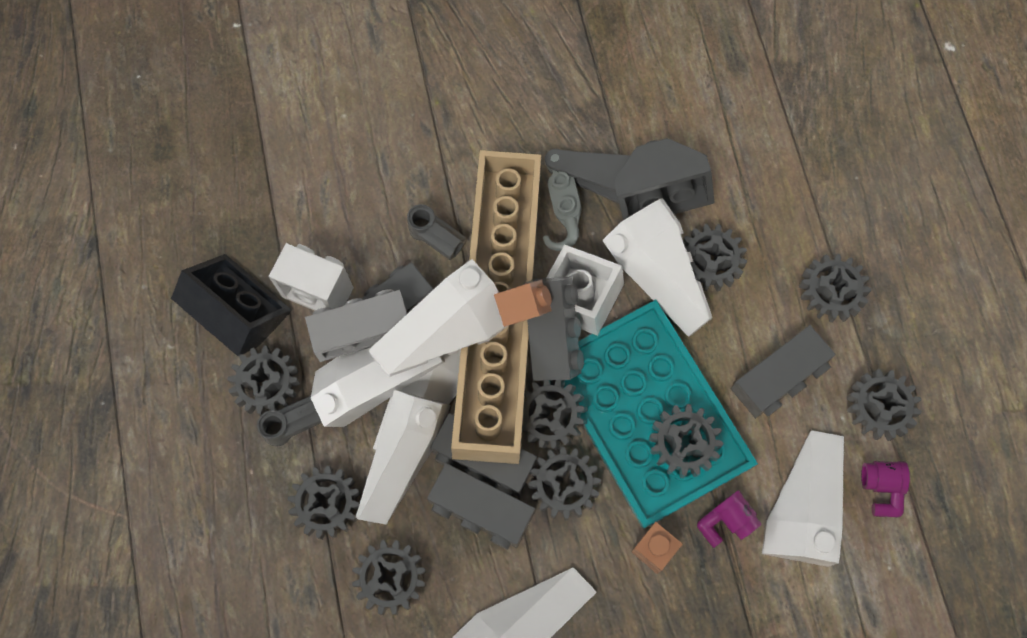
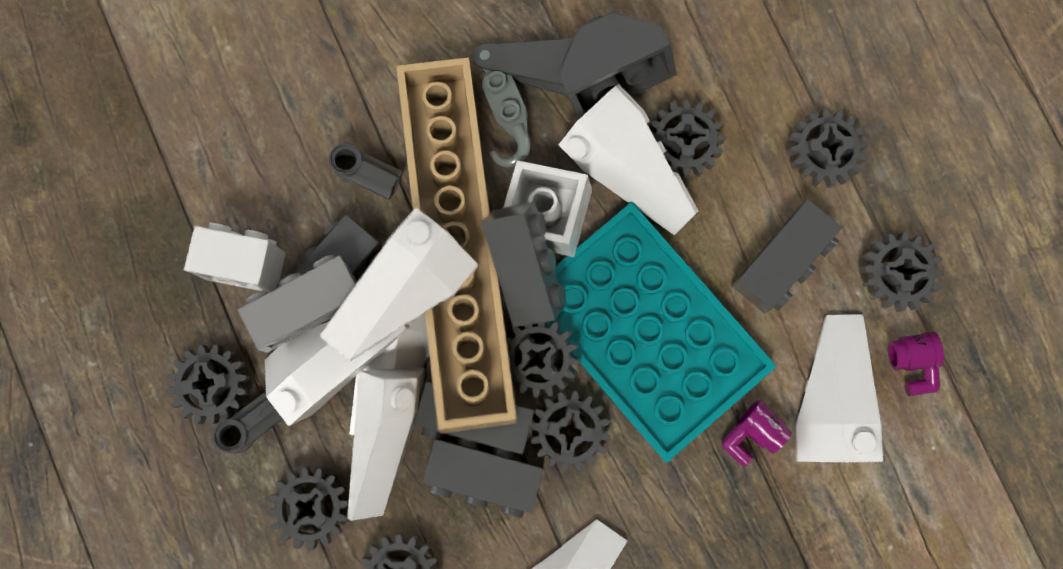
camera: 15 degrees left, 10 degrees up
(229, 303) = (147, 302): black slope -> none
(523, 302) = (485, 247): nougat brick -> none
(656, 548) = (684, 482): nougat brick -> none
(673, 435) = (711, 365): dark grey gear -> none

